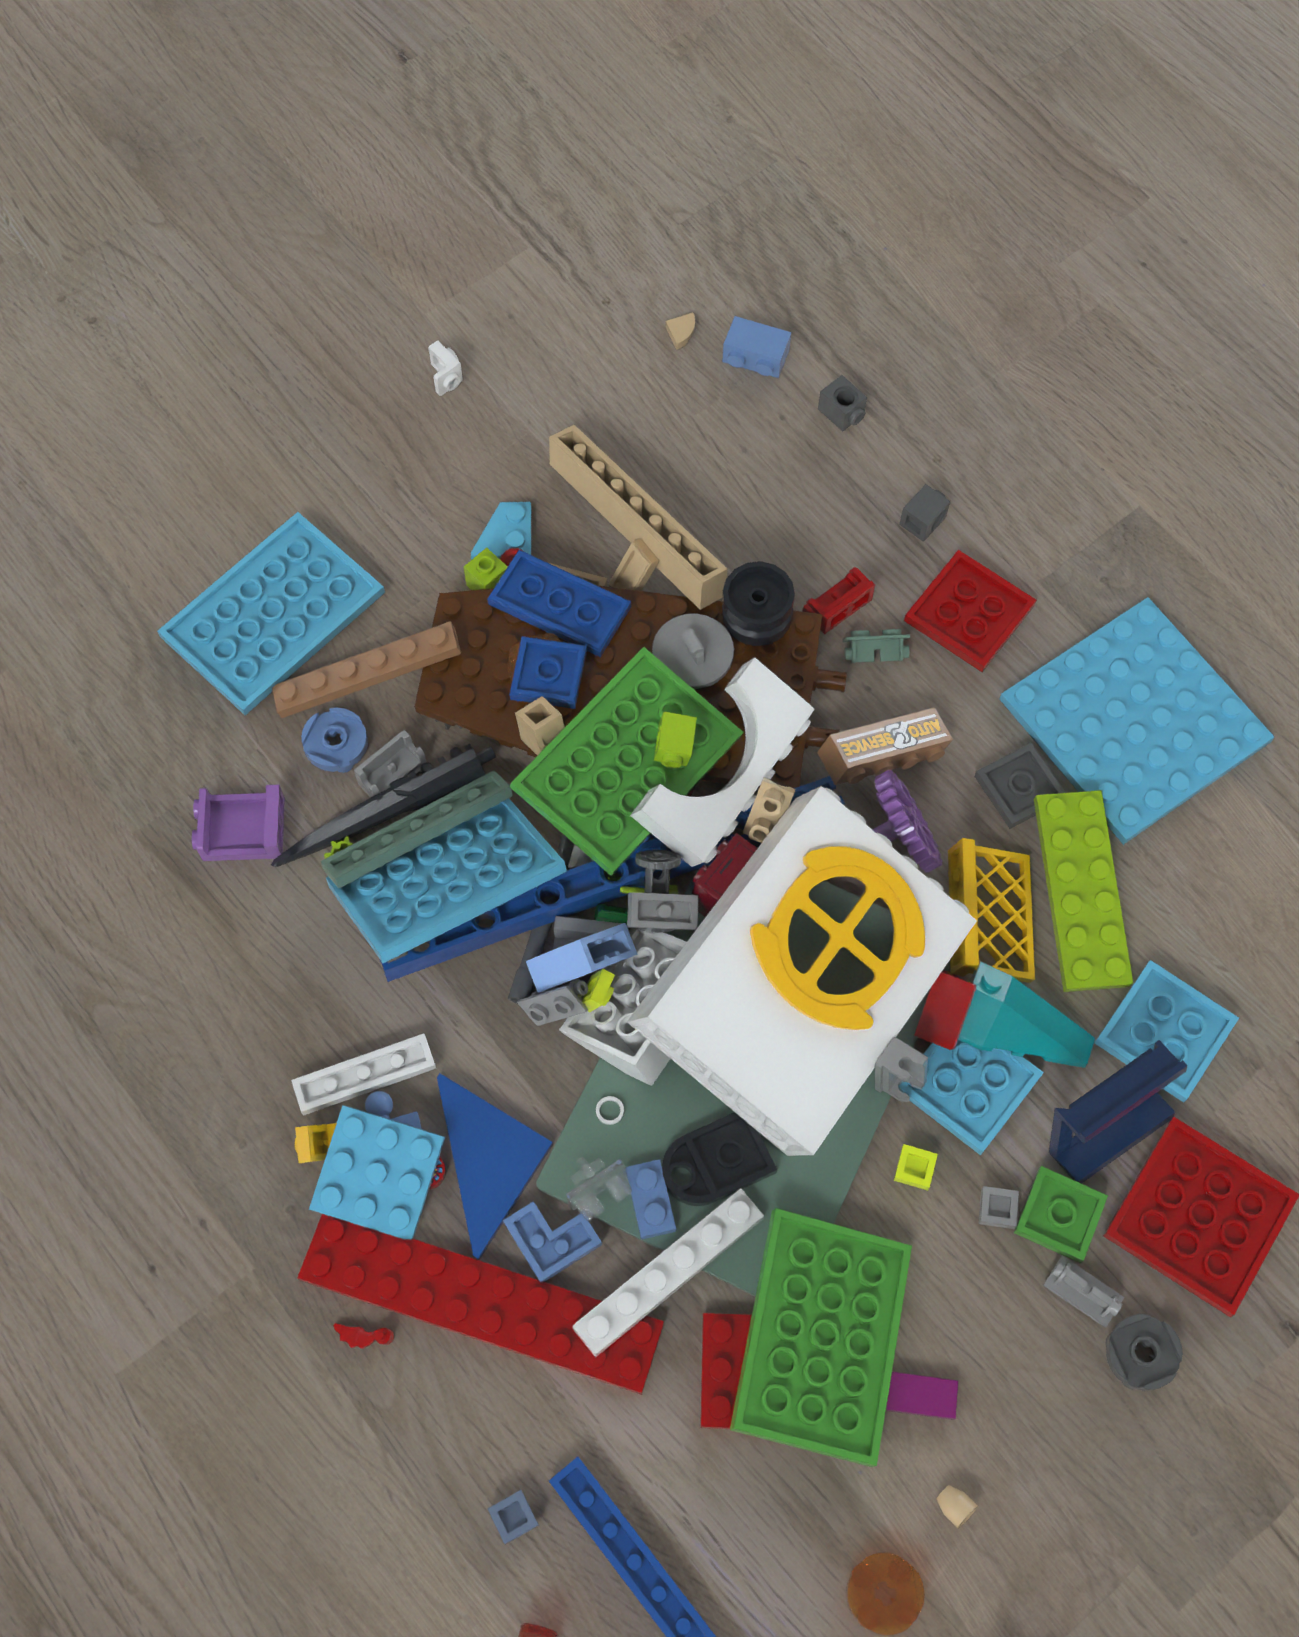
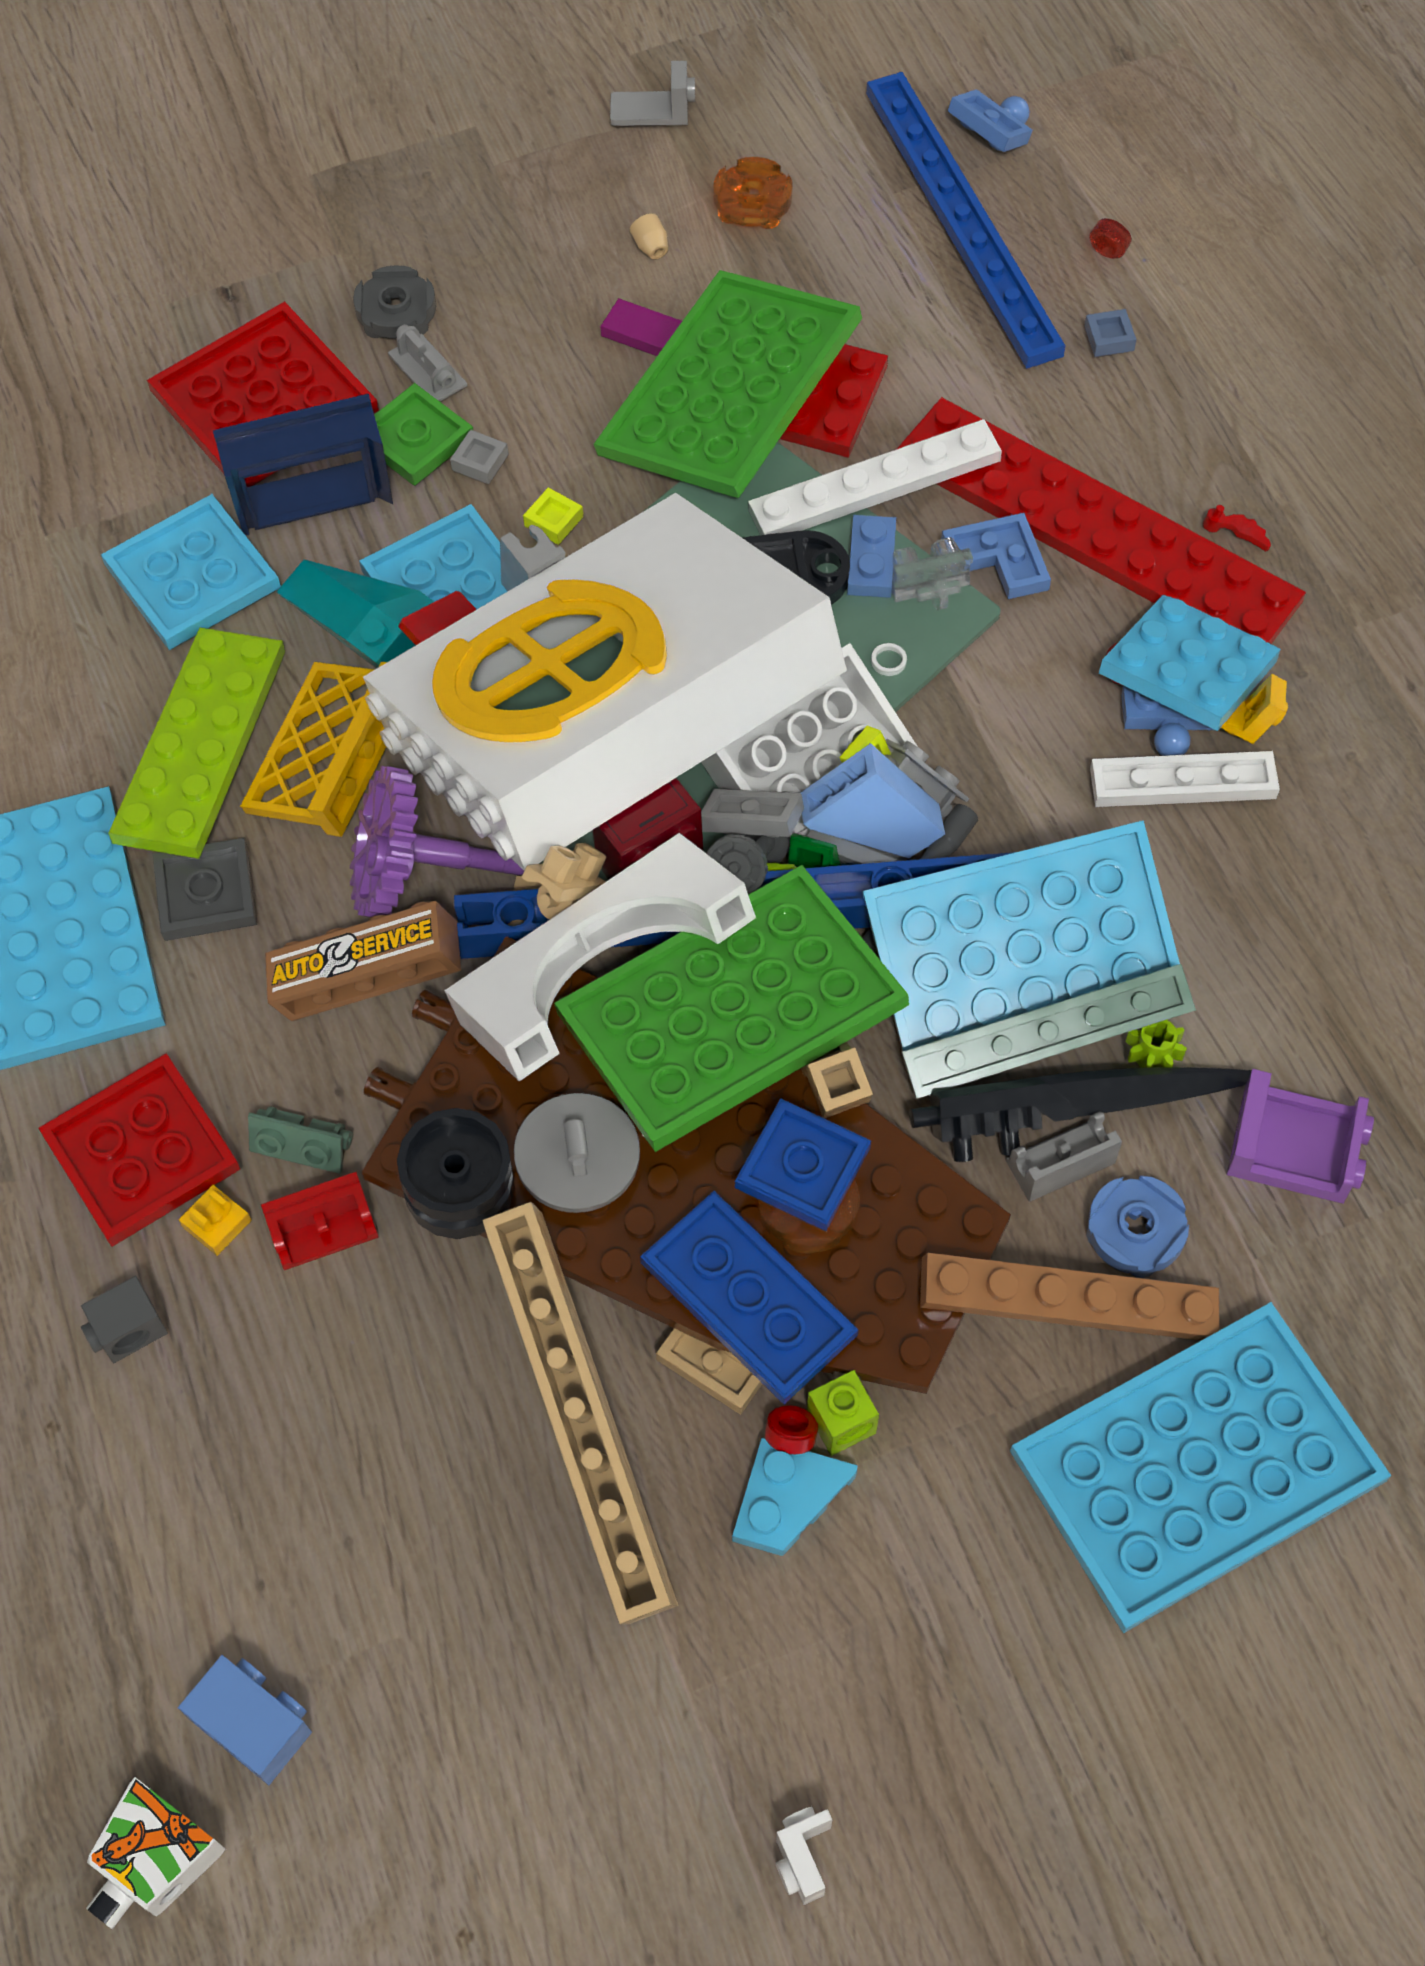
camera: 160 degrees left, 5 degrees down
(491, 1159) = (1047, 658): blue tile -> none
(635, 567) = (614, 1335): tan tile -> none
(675, 739) = (658, 989): lime brick -> none
(681, 329) = (356, 1814): tan tile -> none
(774, 282) = (147, 1855): none -> torso
(842, 393) = (166, 1575): dark grey brick -> none
(903, 587) = (215, 1220): none -> yellow tile

